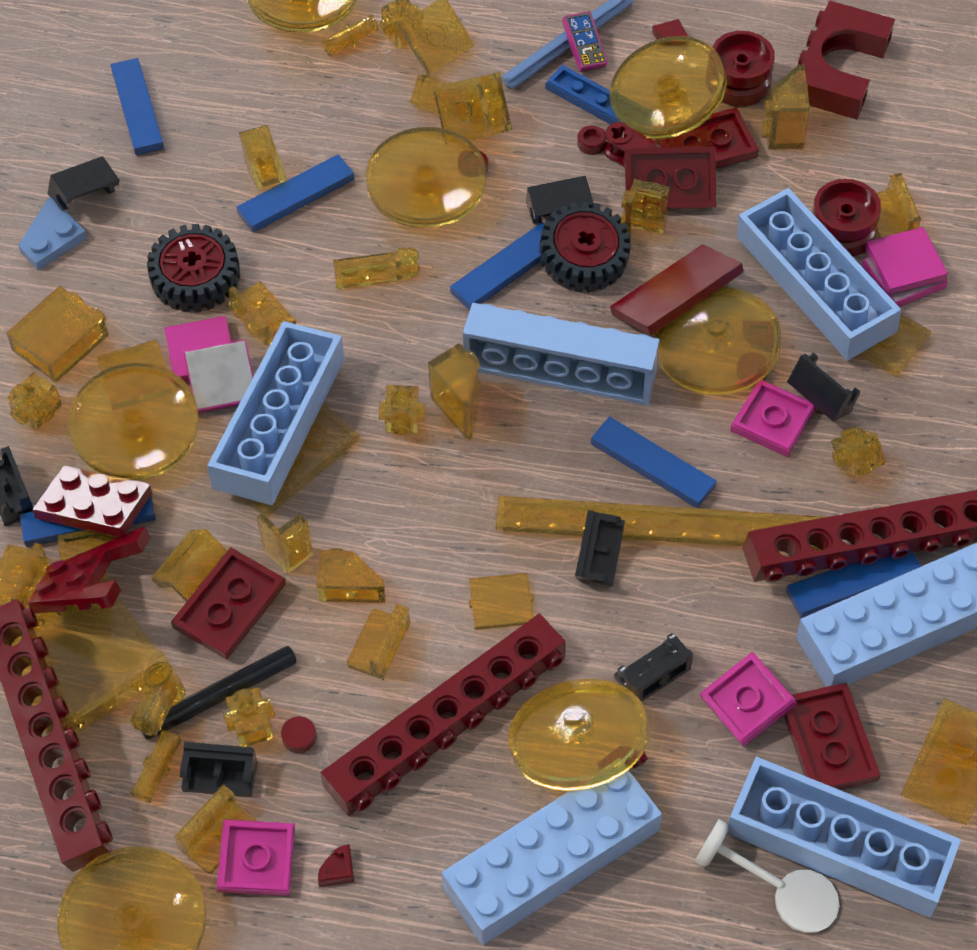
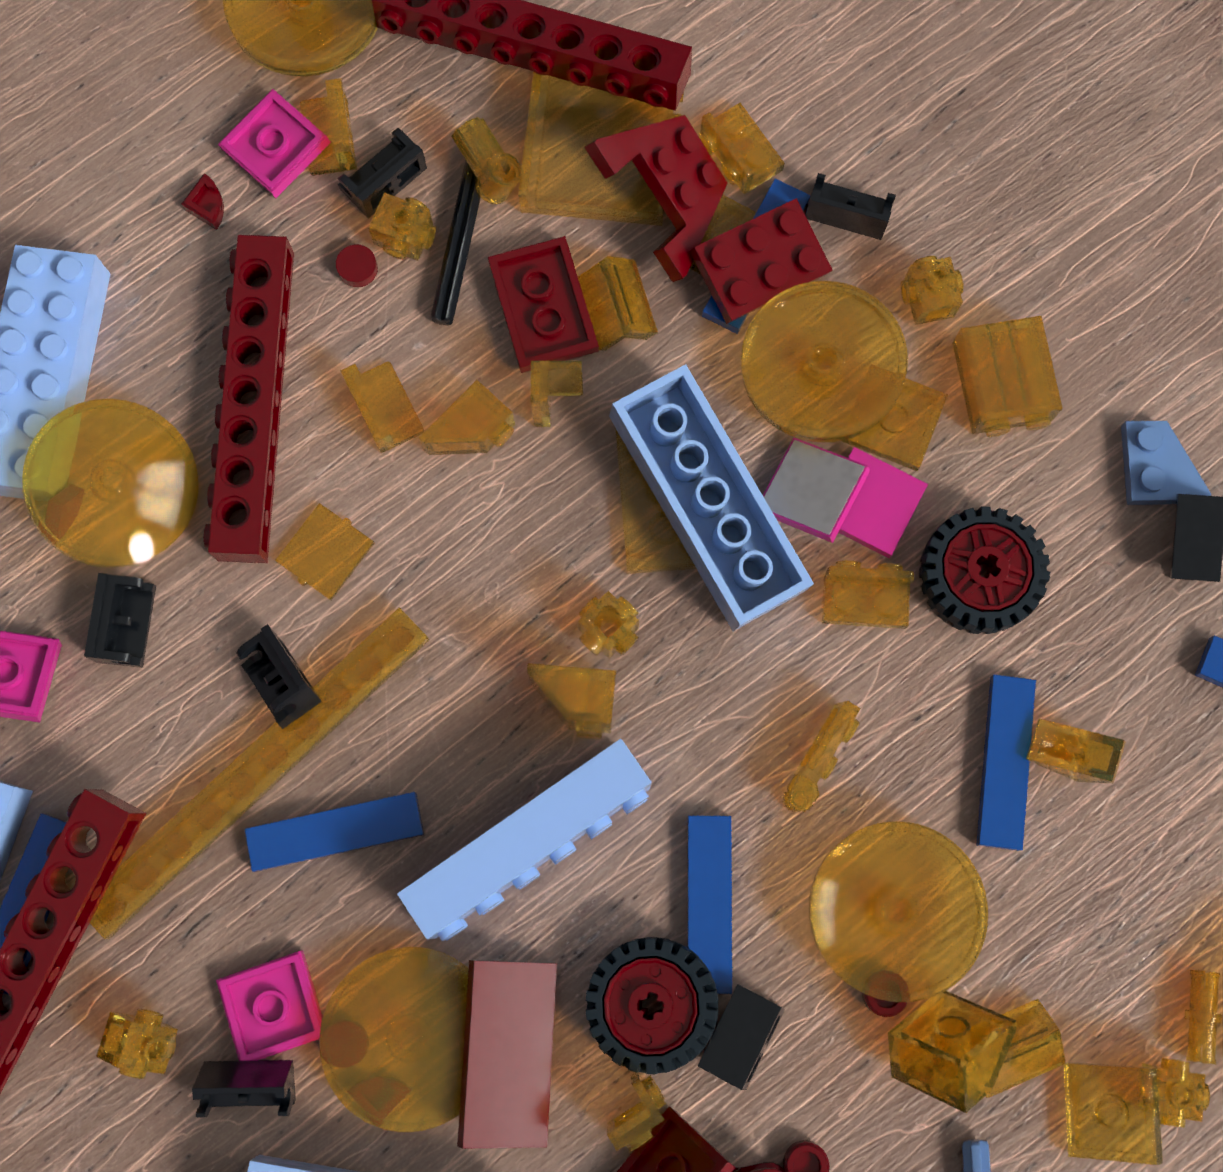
camera: 130 degrees right, 20 degrees up
(156, 766) = (433, 125): clear yellow pin -> none

